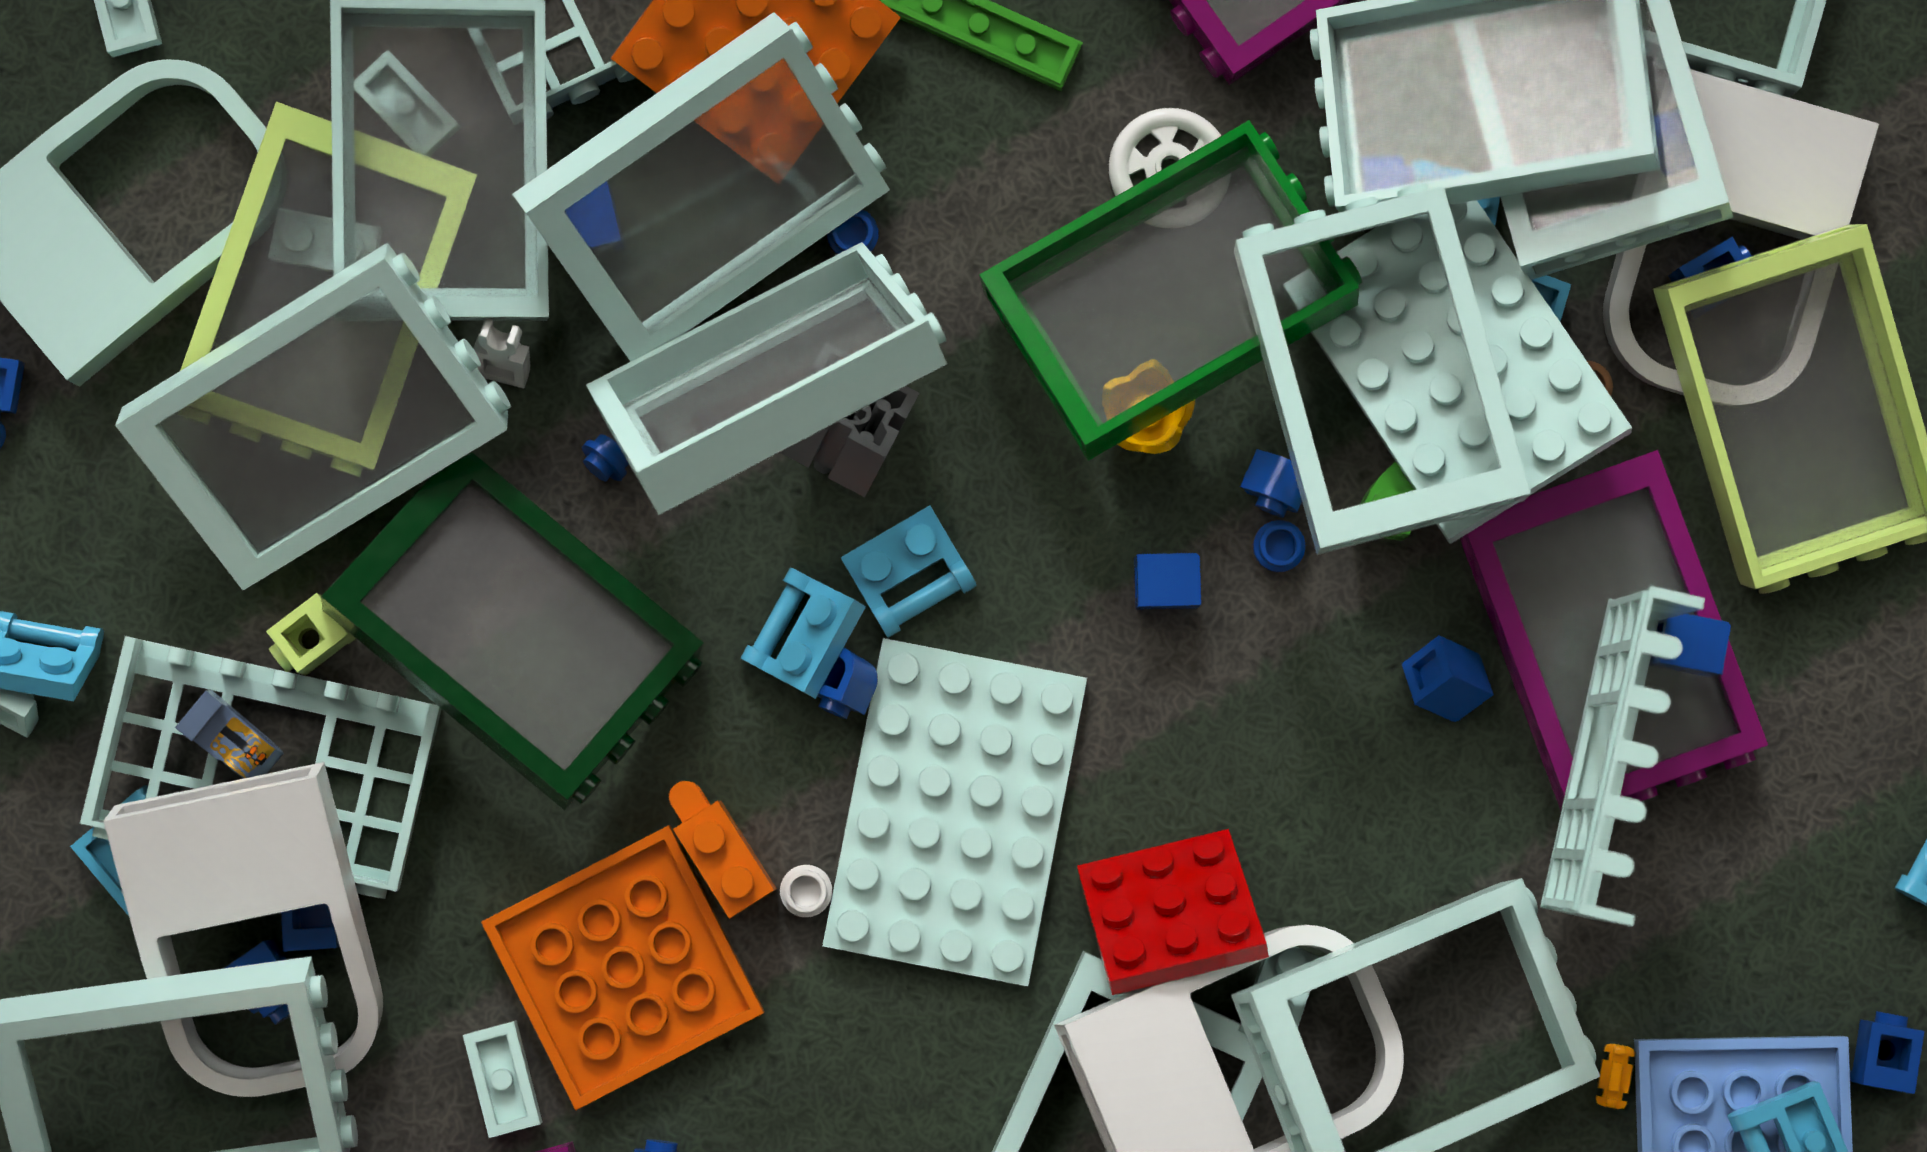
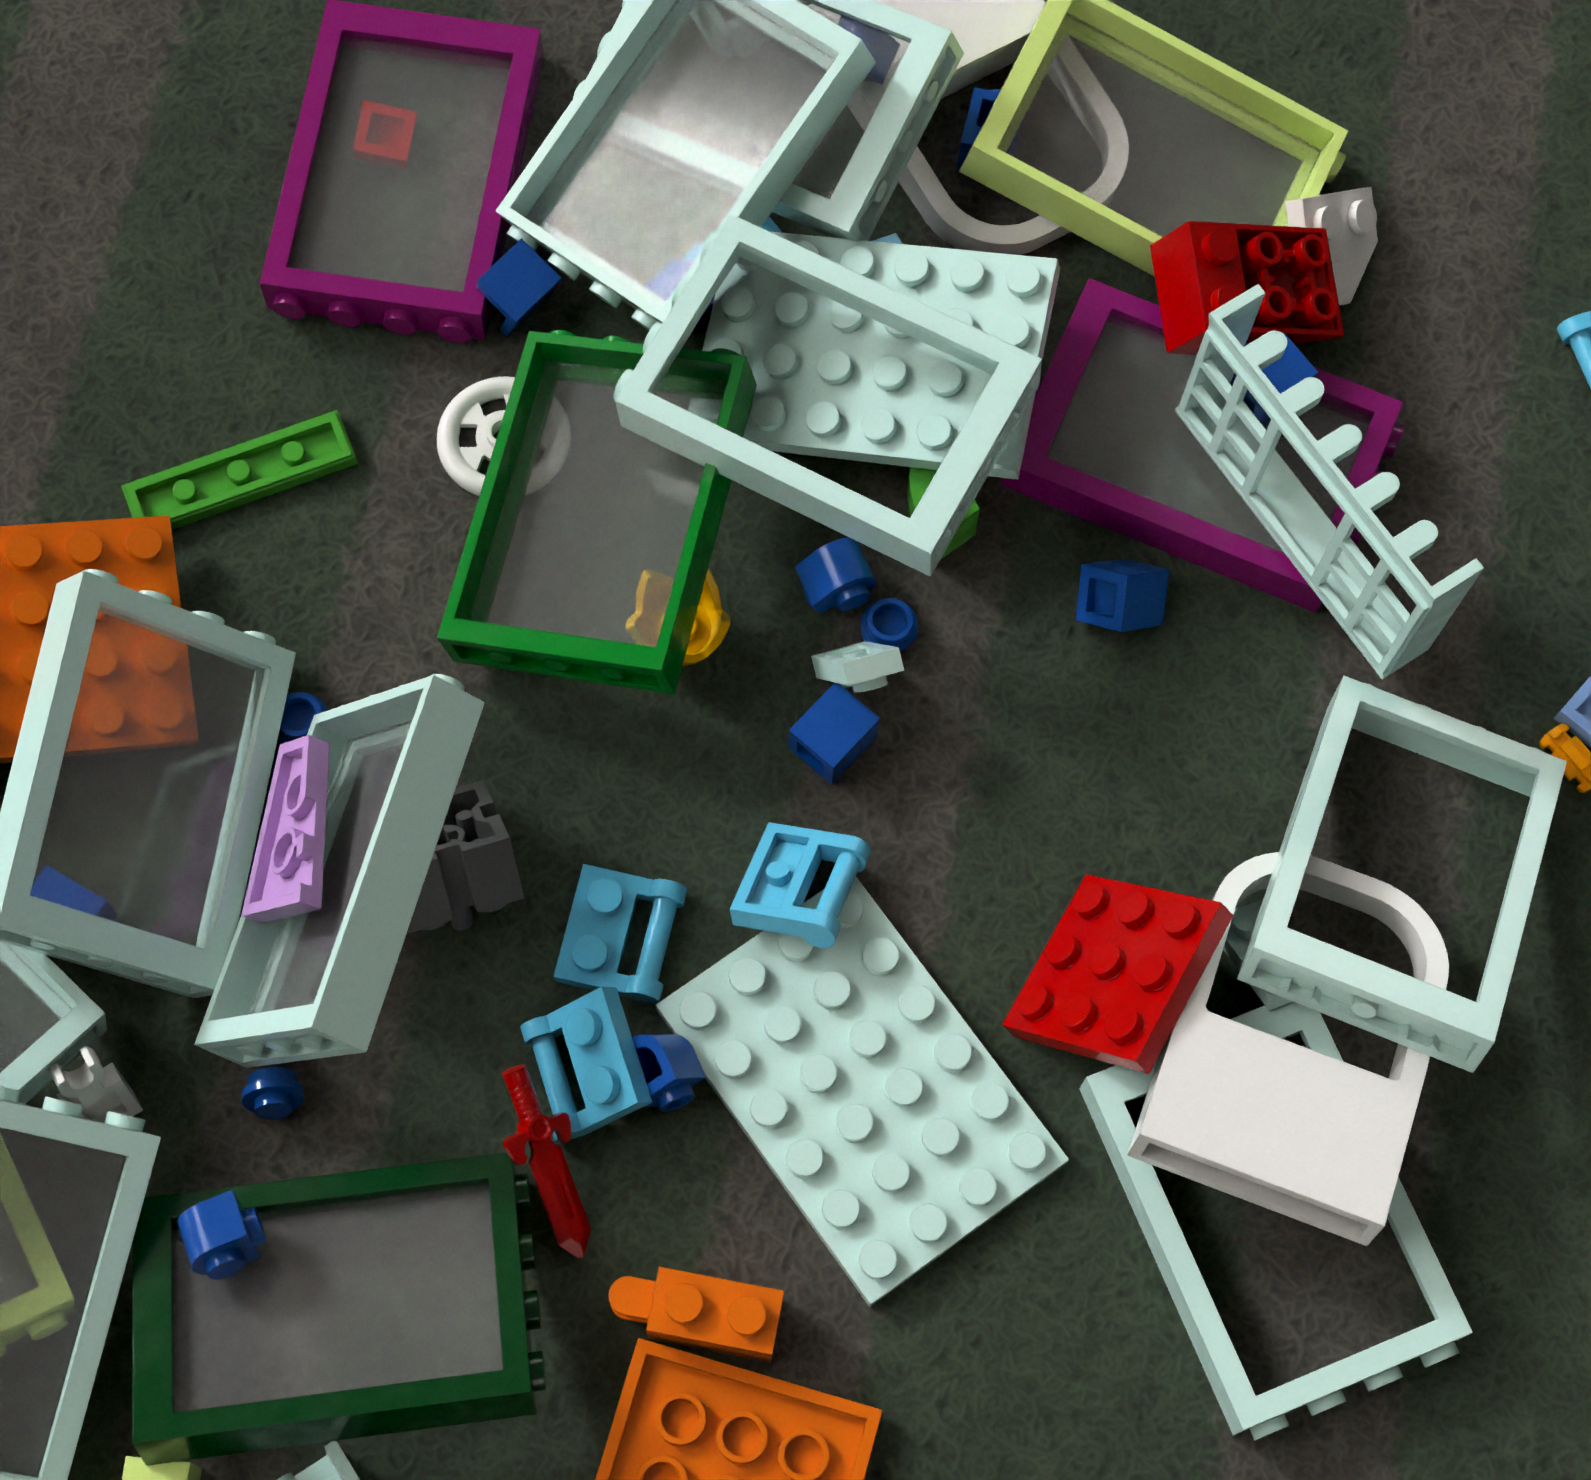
camera: 45 degrees left, 15 degrees down
(486, 524) = (221, 1235): none -> blue plate
(721, 667) = (547, 1161): none -> red sword
(762, 317) = (291, 841): none -> lavender wing
(806, 891) = (809, 1274): white plate -> none
(1037, 640) = (782, 876): none -> medium azure plate
(1224, 556) = (859, 665): none -> light aqua plate
(1281, 73) = (518, 284): none -> blue panel
(1745, 568) = (1215, 262): none -> red slope
(1850, 589) = (1350, 230): none -> white plate

